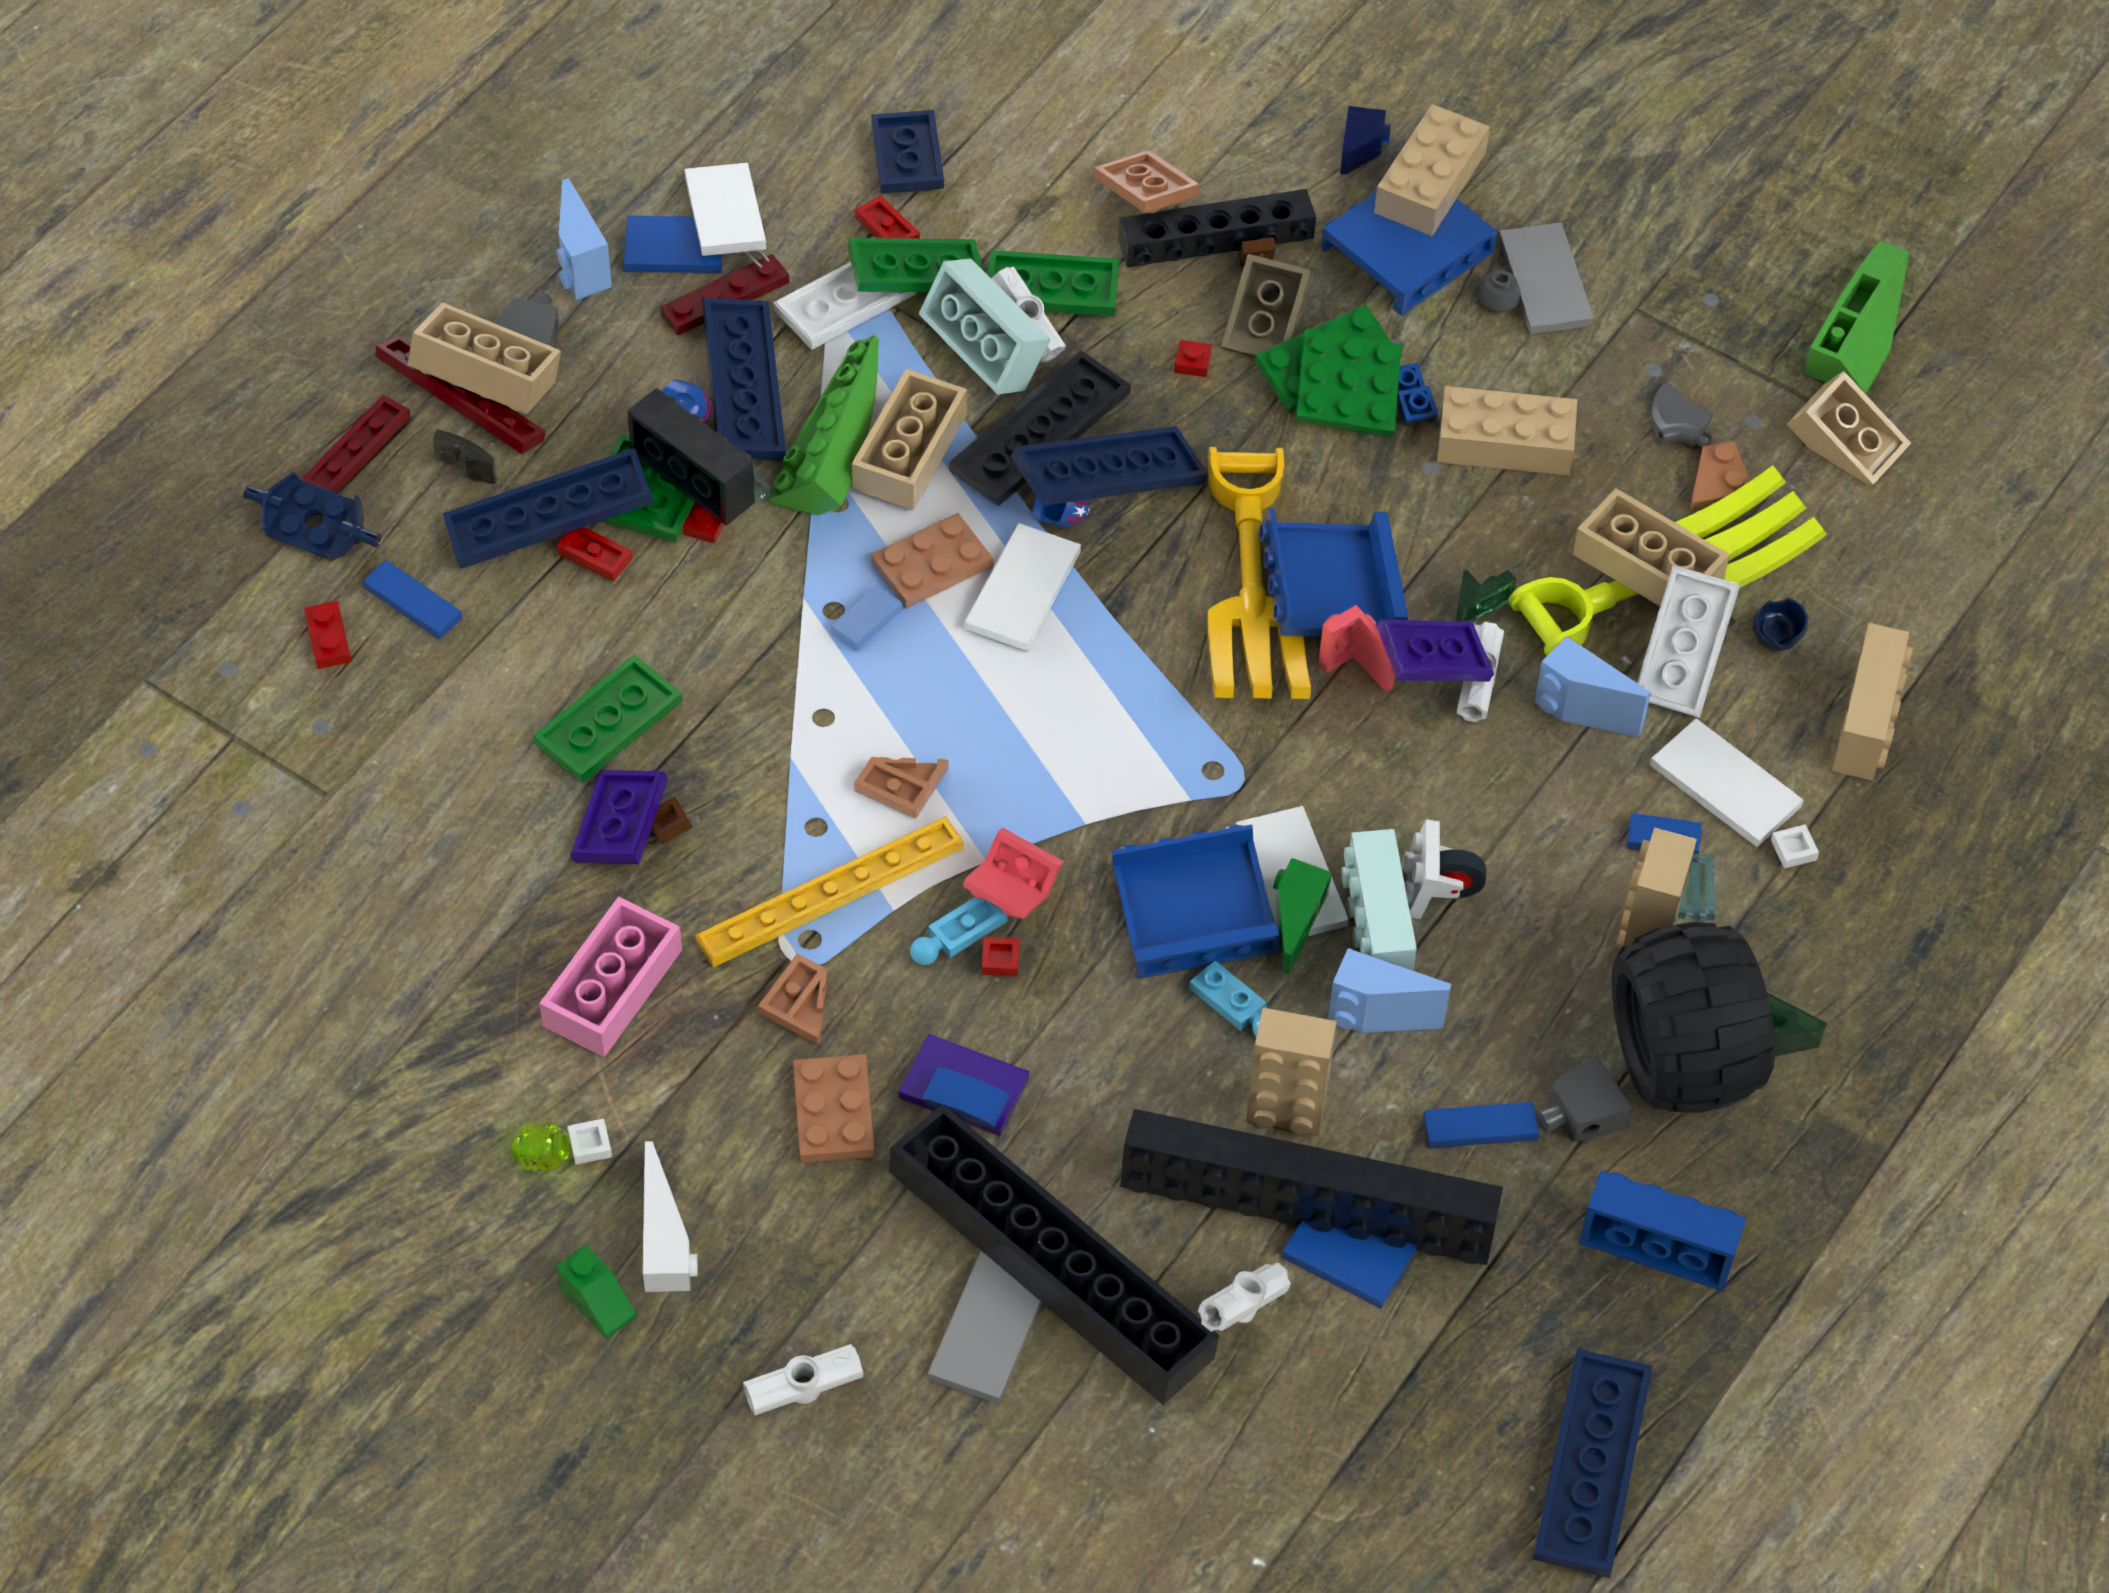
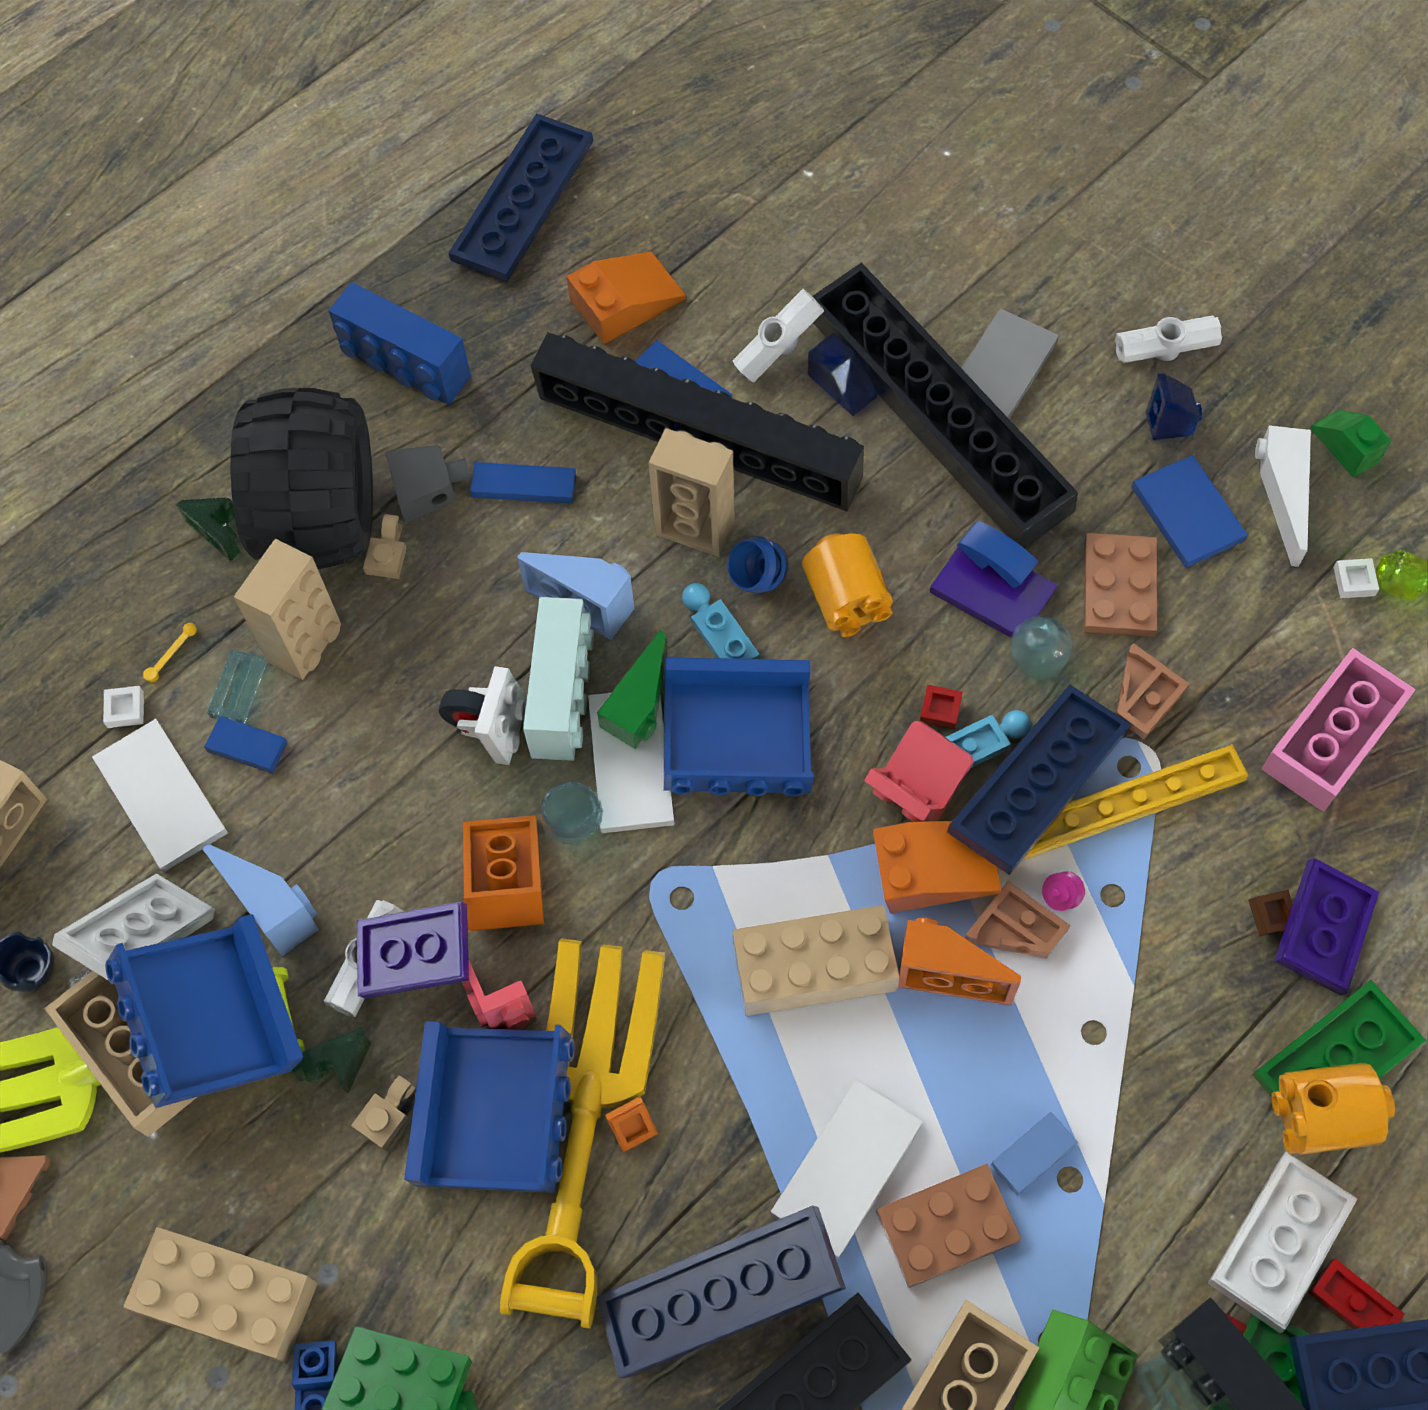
camera: 165 degrees left, 10 degrees up
(621, 646) = (1333, 1108): none -> light orange cylinder
(655, 581) = (1282, 1242): none -> white tile
(766, 1195) = (1189, 511): none -> blue tile
(792, 1284) = (1172, 409): none -> clear blue slope
(863, 808) = (1063, 891): none -> dark pink wheel
(896, 889) = (1038, 779): none -> dark blue plate
(909, 1018) = (1041, 647): none -> clear light blue hair
(955, 719) = (948, 964): none -> orange slope
(978, 804) = (930, 867): none -> orange slope
(1080, 719) = (815, 960): none -> tan brick
(1115, 1042) = (847, 583): none -> light orange cylinder
(1176, 1278) = (841, 374): none -> clear blue slope
(1211, 587) = (631, 1124): none -> orange tile
(1212, 1054) = (757, 565): none -> blue helmet
(1333, 803) = (570, 813): none -> clear light blue hair
(1382, 756) = (502, 873): none -> orange slope
(1423, 569) = (382, 1117): none -> tan plate
(1434, 1352) = (622, 293): none -> orange slope
(1595, 566) = (203, 1012): none -> blue panel
(1598, 1030) = (386, 554): none -> tan plate
(1784, 888) = (151, 674): none -> yellow hinge

